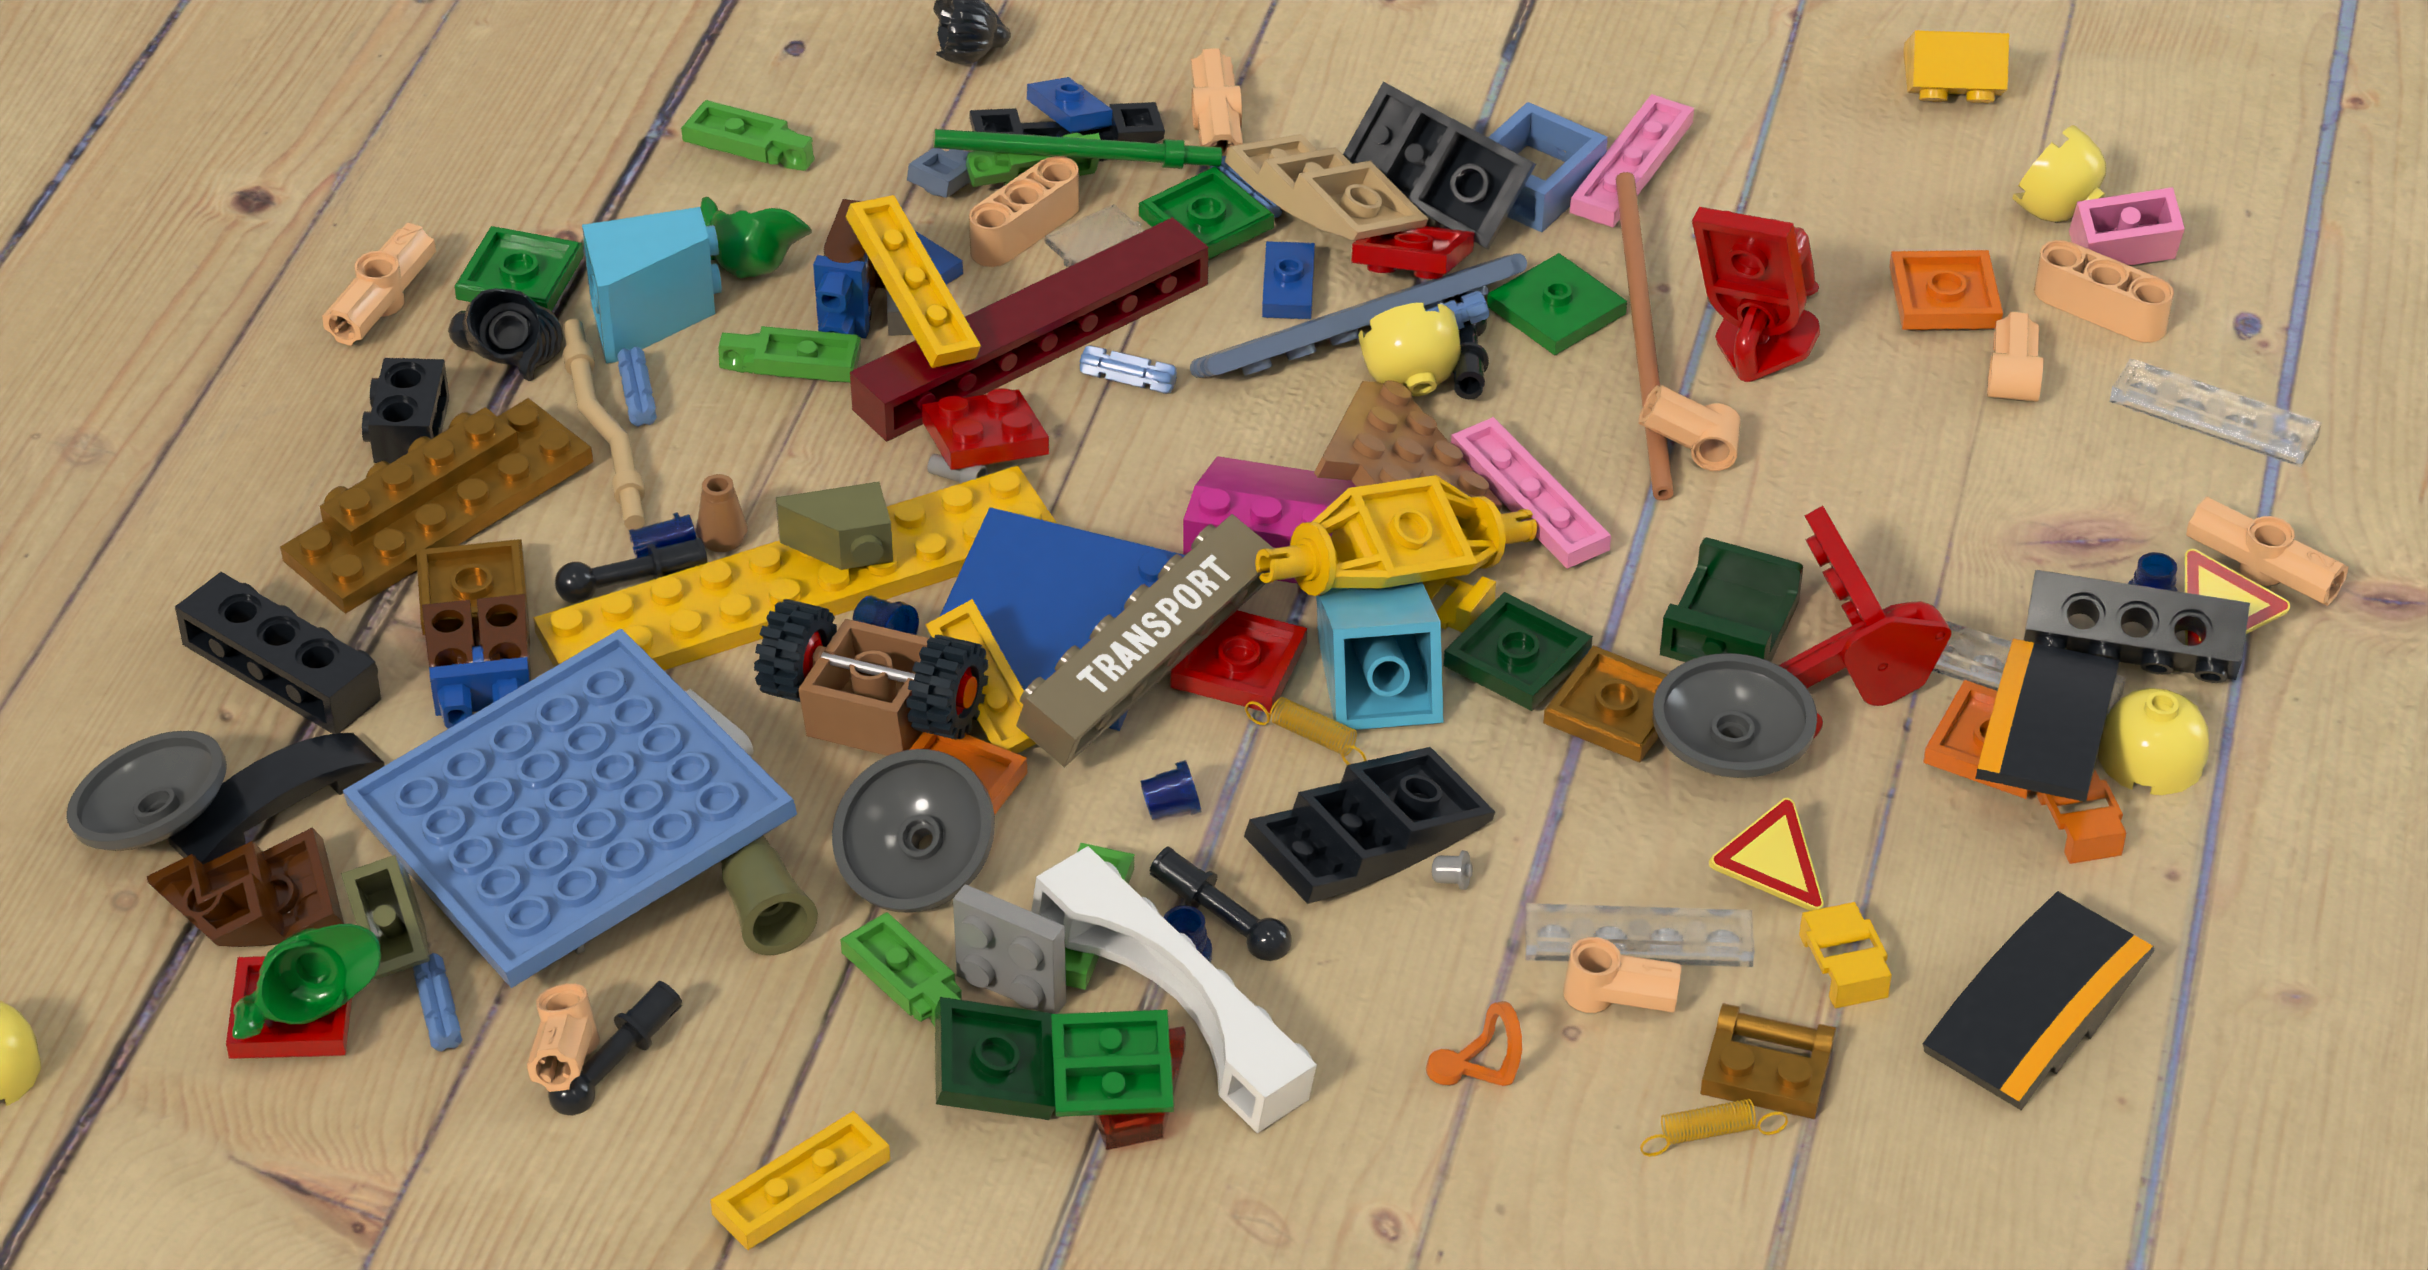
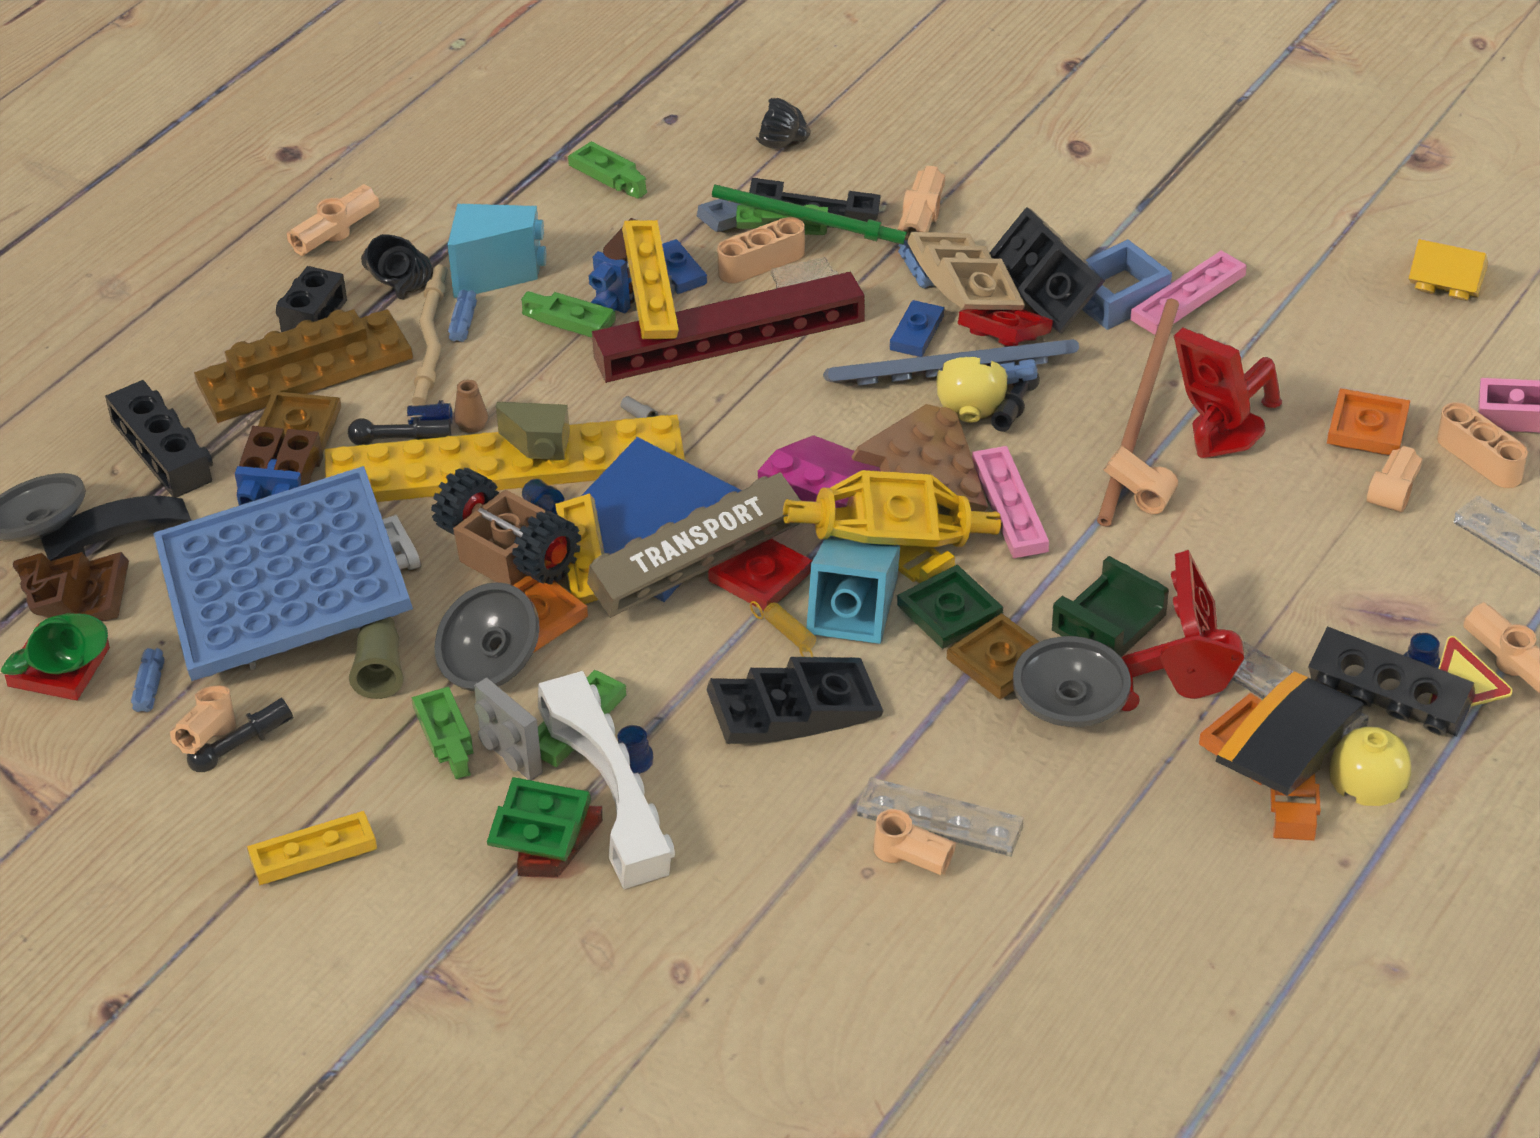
camera: 20 degrees right, 0 degrees up
(388, 907) = (137, 617): olive slope -> none
(522, 263) = (424, 225): green plate -> none
(754, 241) = (573, 236): green hair -> none
(985, 428) = (666, 386): red plate -> none
(994, 1058) = (465, 796): dark green plate -> none
(1069, 104) = (824, 186): blue plate -> none
(1128, 369) = (781, 366): axle -> none
(1171, 792) = (672, 650): clear blue piece -> none
(1211, 210) = (883, 274): green plate -> none
(1266, 937) = (691, 760): black pin -> none
(1448, 1067) = (771, 875): orange piece -> none
(1453, 869) = (837, 743): light grey piece -> none
(1556, 304) = (1091, 379): green plate -> none
(1706, 1120) = (940, 955): yellow piece -> none
(1766, 1075) = (985, 934): pearl gold plate -> none
(1773, 857) = (1056, 784): piece -> none
(1854, 975) = (1078, 879): yellow piece -> none
(2037, 999) = (1198, 925): black slope -> none
(2063, 178) = (1485, 357): light yellow cylinder -> none

